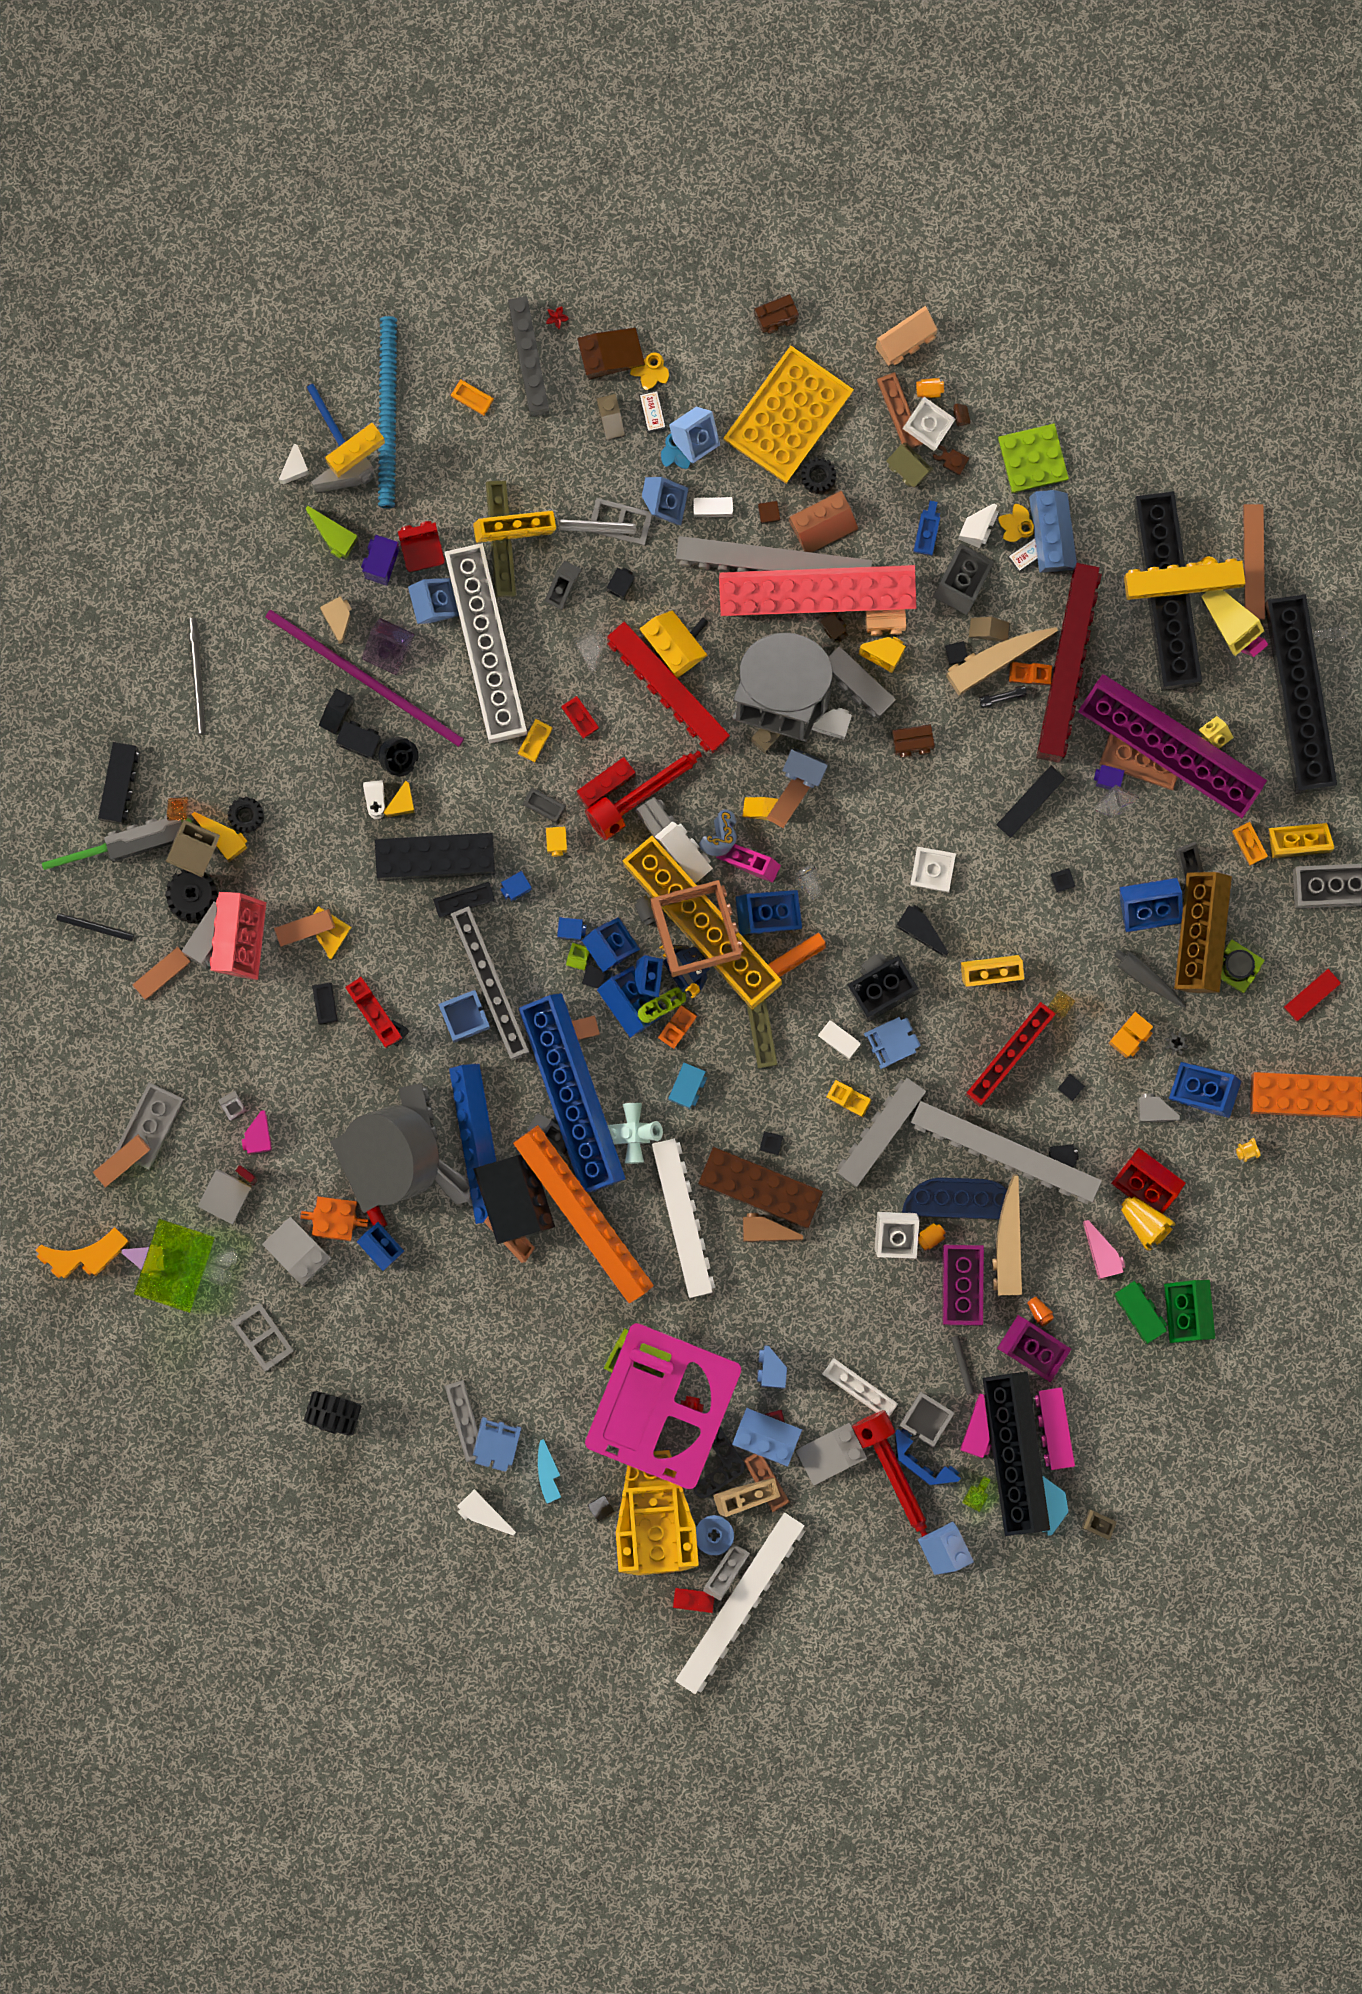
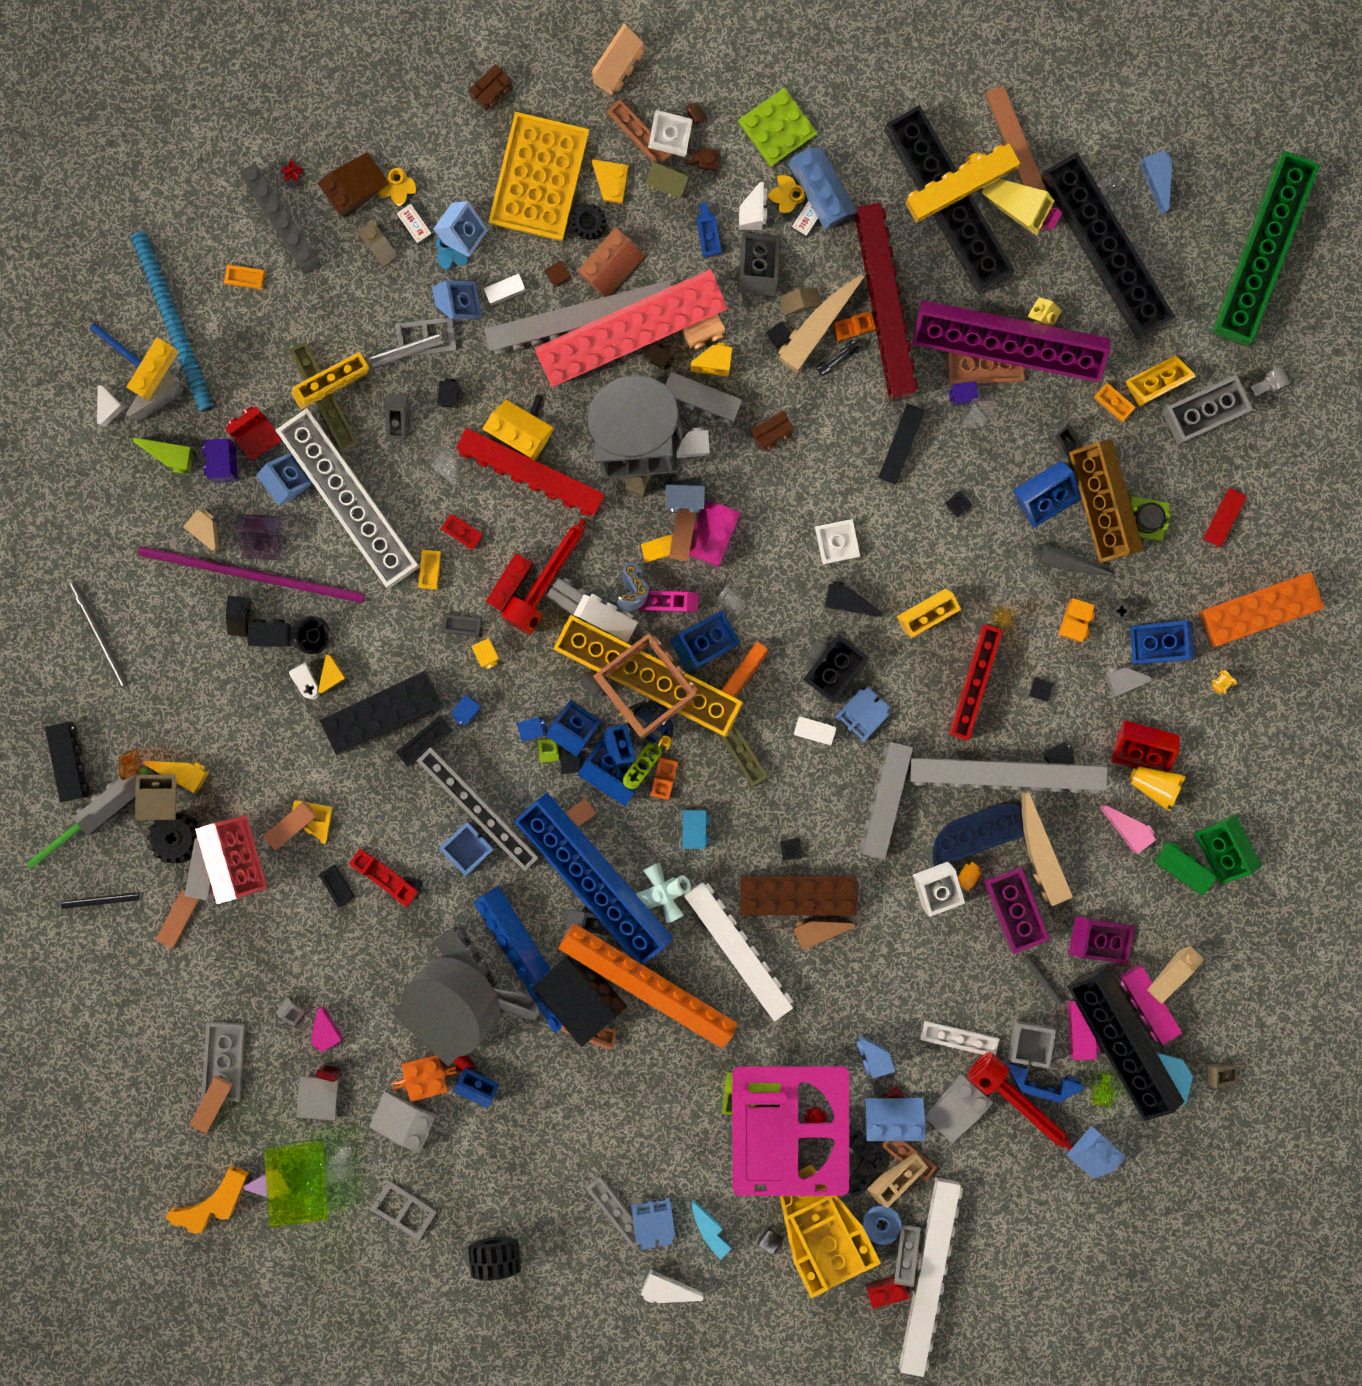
camera: 20 degrees left, 5 degrees up
(242, 803) = (183, 748): black tyre -> none
(817, 814) = (713, 532): none -> dark pink slope
(849, 1098) = (845, 780): yellow slope -> none
(855, 445) = (611, 180): none -> yellow wing
(930, 388) = (658, 100): light orange brick -> none
(1040, 1311) = (1094, 904): orange cone -> none
(1090, 1407) = (1175, 973): none -> tan slope

